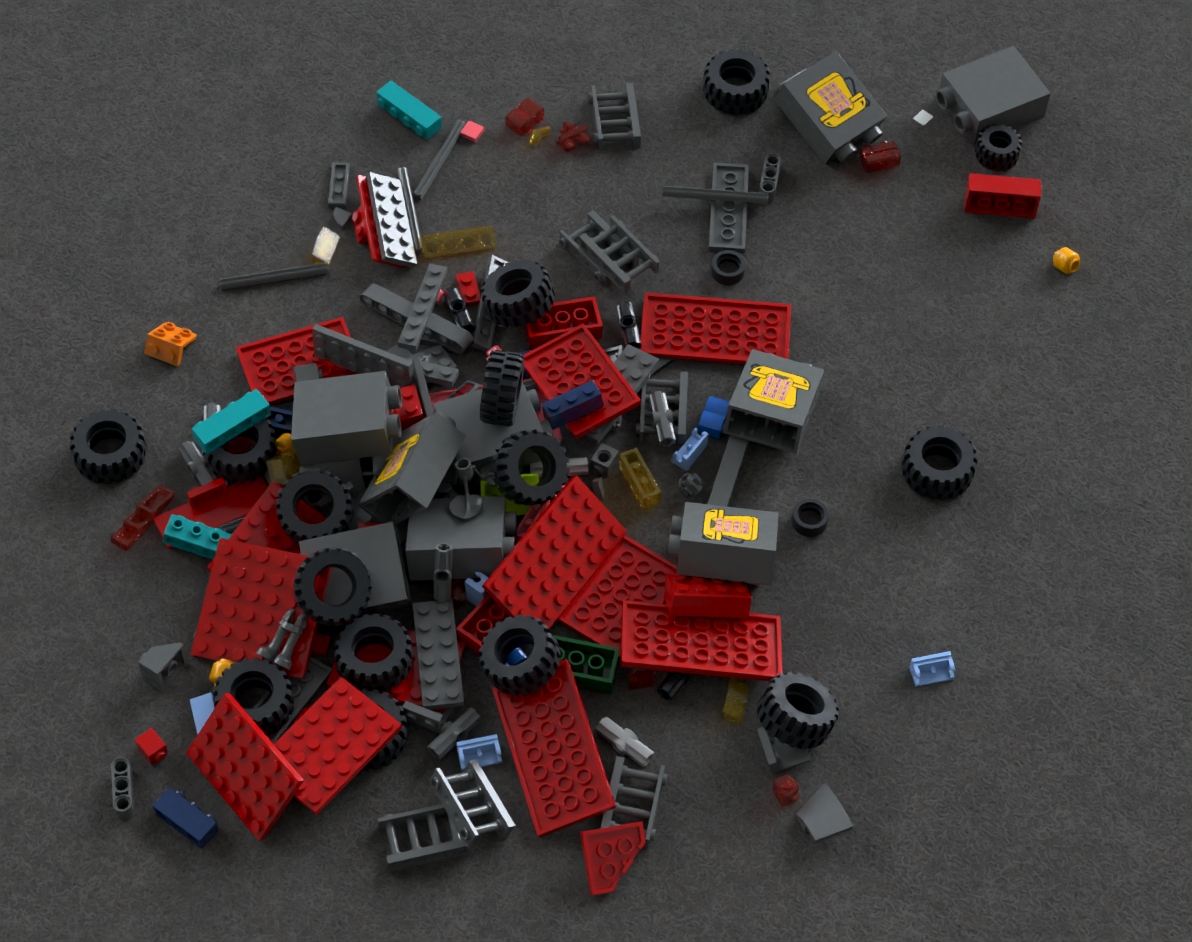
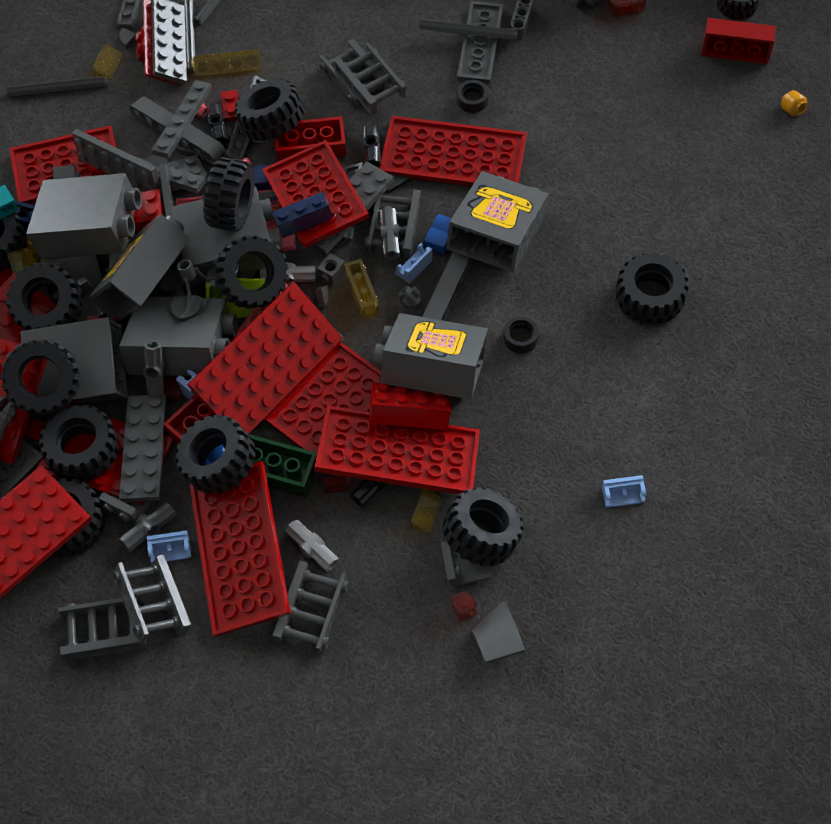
camera: 10 degrees right, 5 degrees up
(610, 854) = (279, 660): red plate -> none

